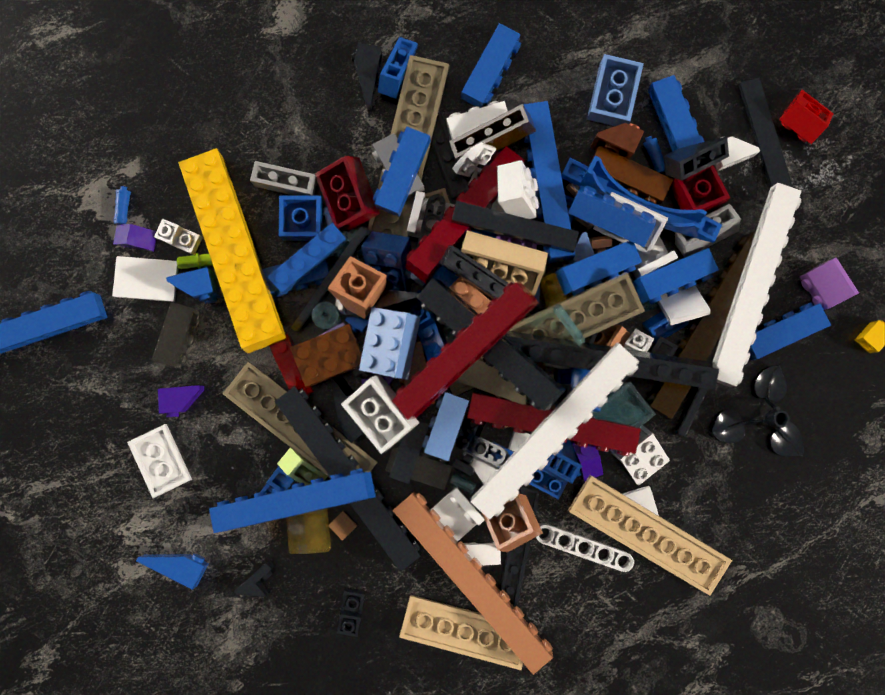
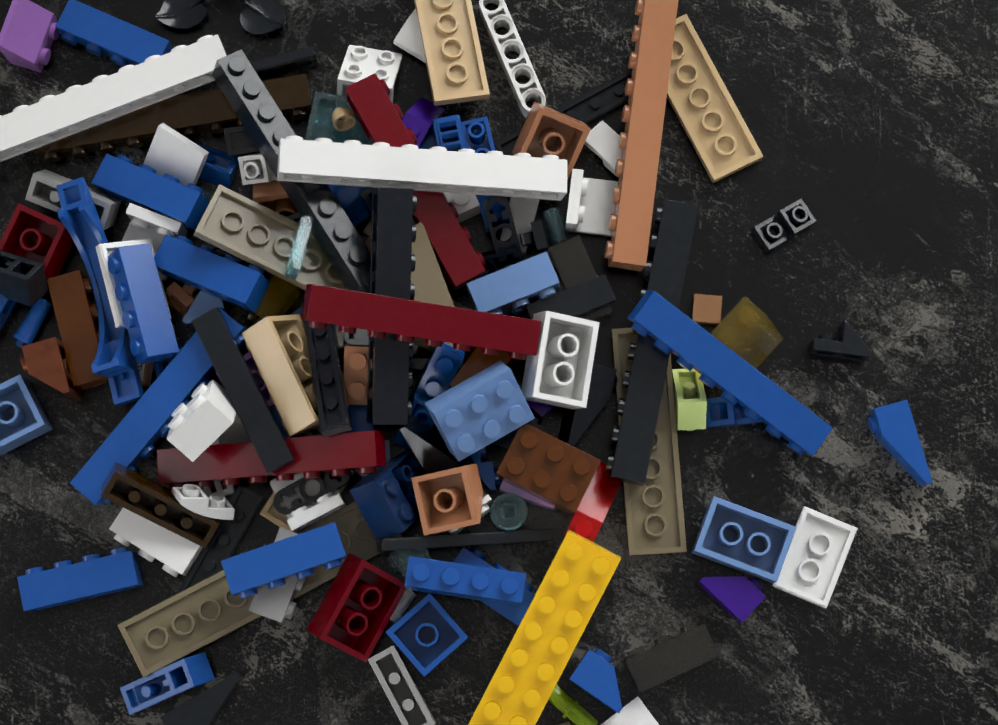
camera: 125 degrees left, 5 degrees down
(199, 429) = (743, 540): none -> medium blue brick
(625, 414) = (348, 119): none -> tan hinge

